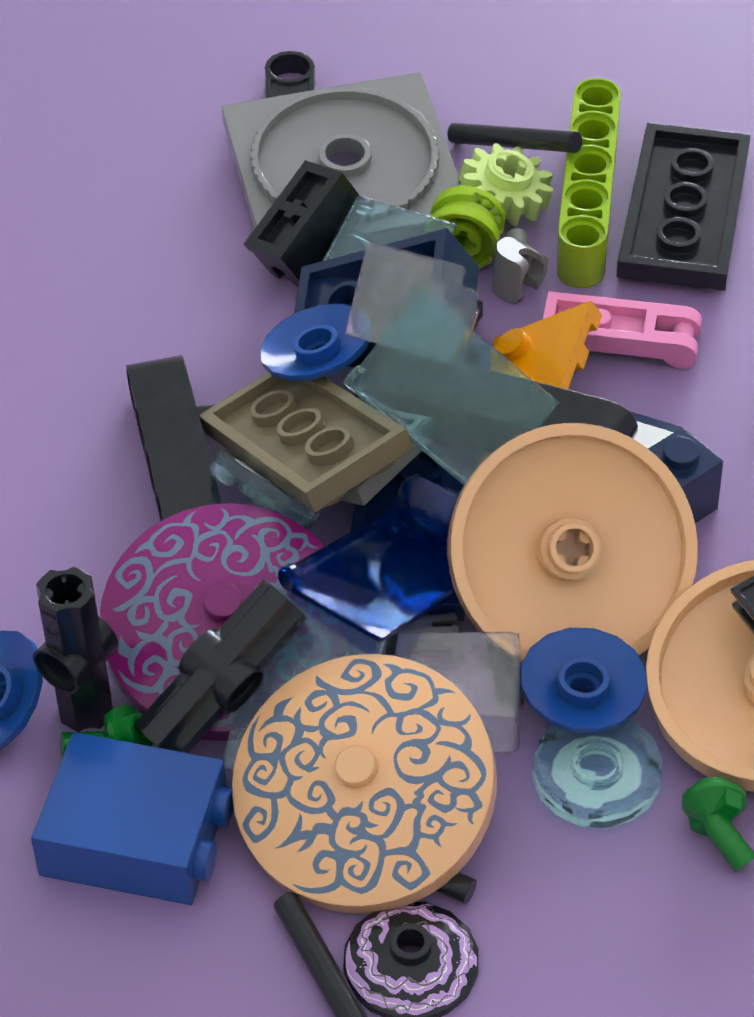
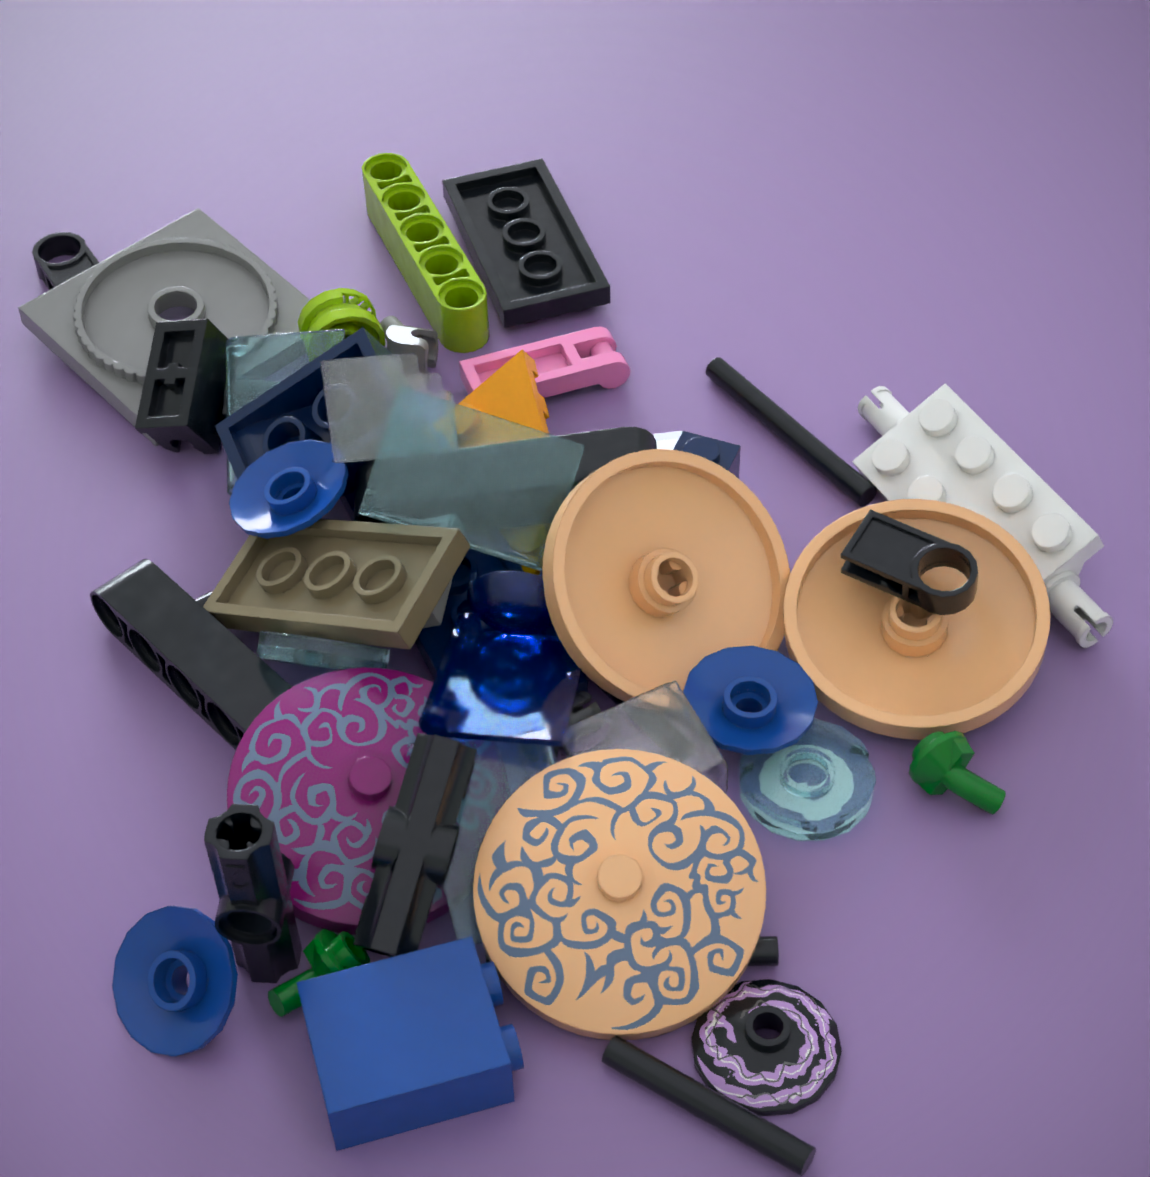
camera: 30 degrees left, 0 degrees up
(511, 180) = (351, 269): yellowish green gear -> none
(515, 136) = (332, 234): black bar -> none

